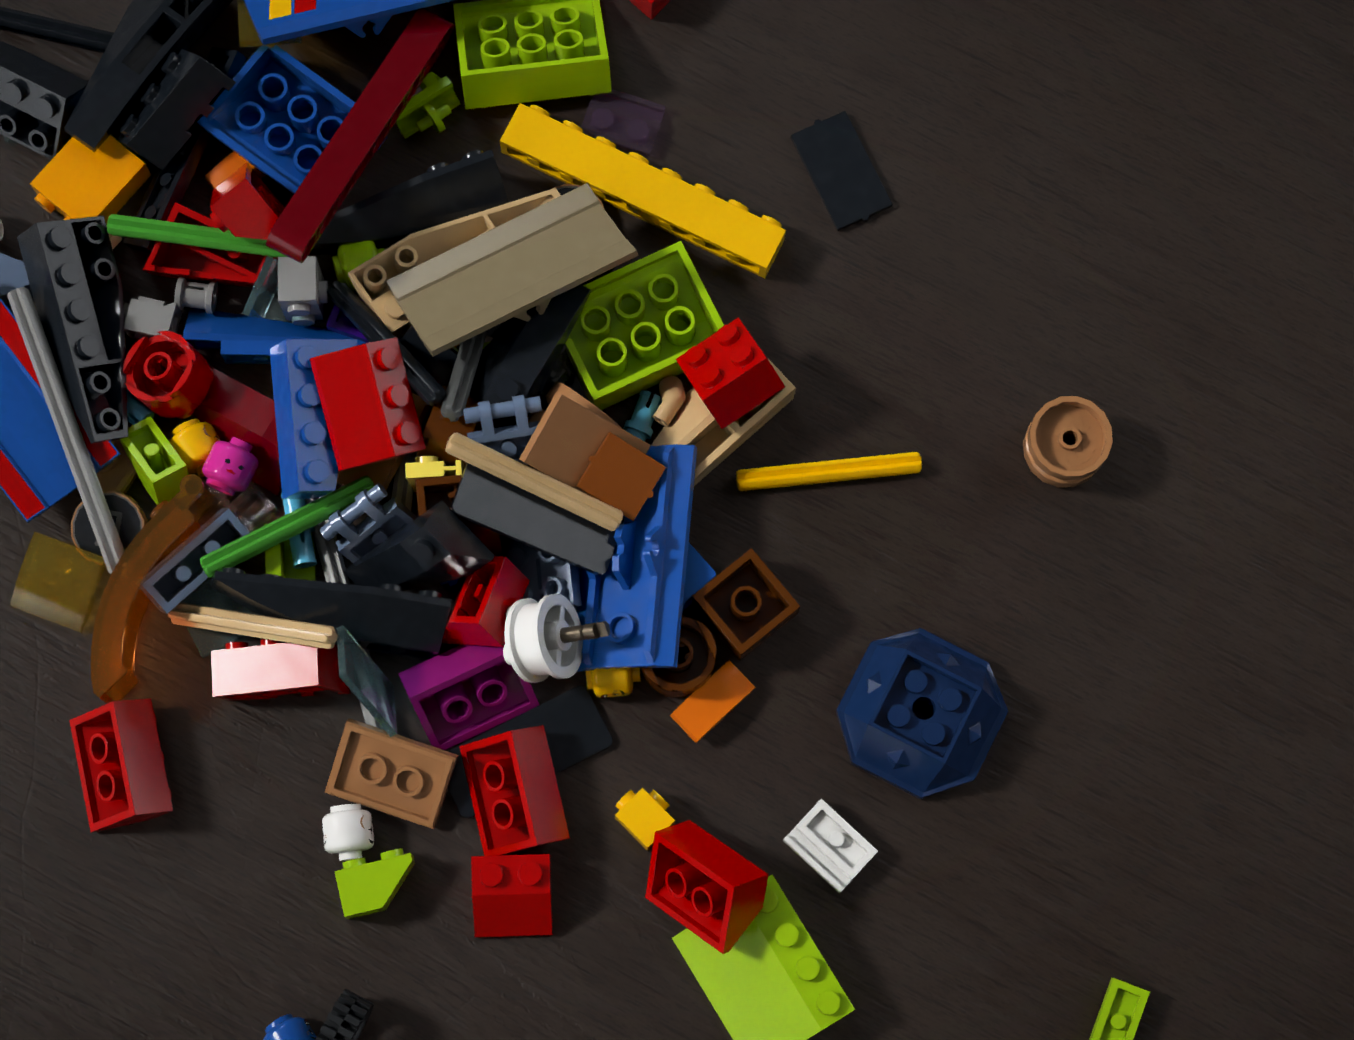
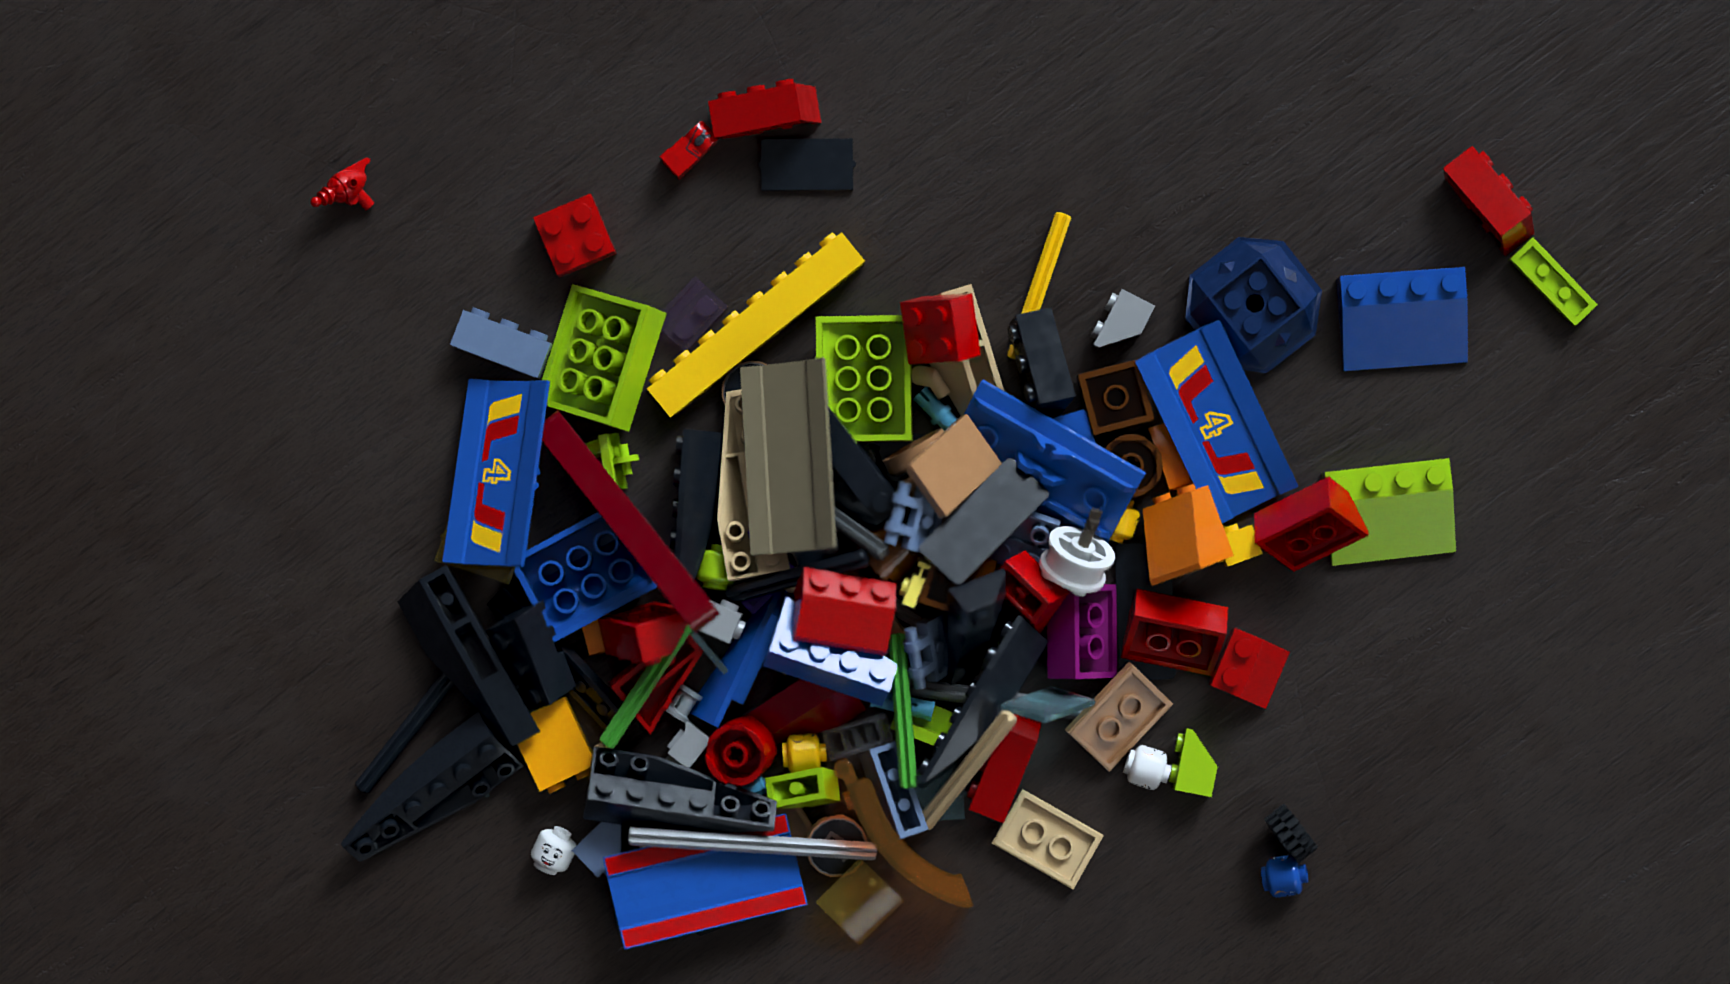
camera: 60 degrees left, 10 degrees up
(121, 764) = (1021, 913): red slope -> none
(218, 759) = (1047, 839): none -> tan tile
(230, 466) = (834, 734): dark pink head -> none
(534, 481) = (961, 514): tan axle -> none
(621, 476) = (983, 447): dark orange piece -> none
(627, 747) = (1183, 534): none -> orange slope
(745, 503) = (1041, 362): none -> black wedge
(769, 728) = (1216, 420): none -> blue hinge
(796, 40) = (689, 150): none -> red leg
(830, 845) = (1319, 418): white plate -> none
(836, 579) = (1125, 319): none -> light grey slope
(879, 95) = (763, 109): none -> red wedge
(987, 887) = (1403, 318): none -> blue slope
(1062, 420) = (1113, 82): medium nougat wheel -> none
(1169, 924) = (1490, 198): none -> red wedge

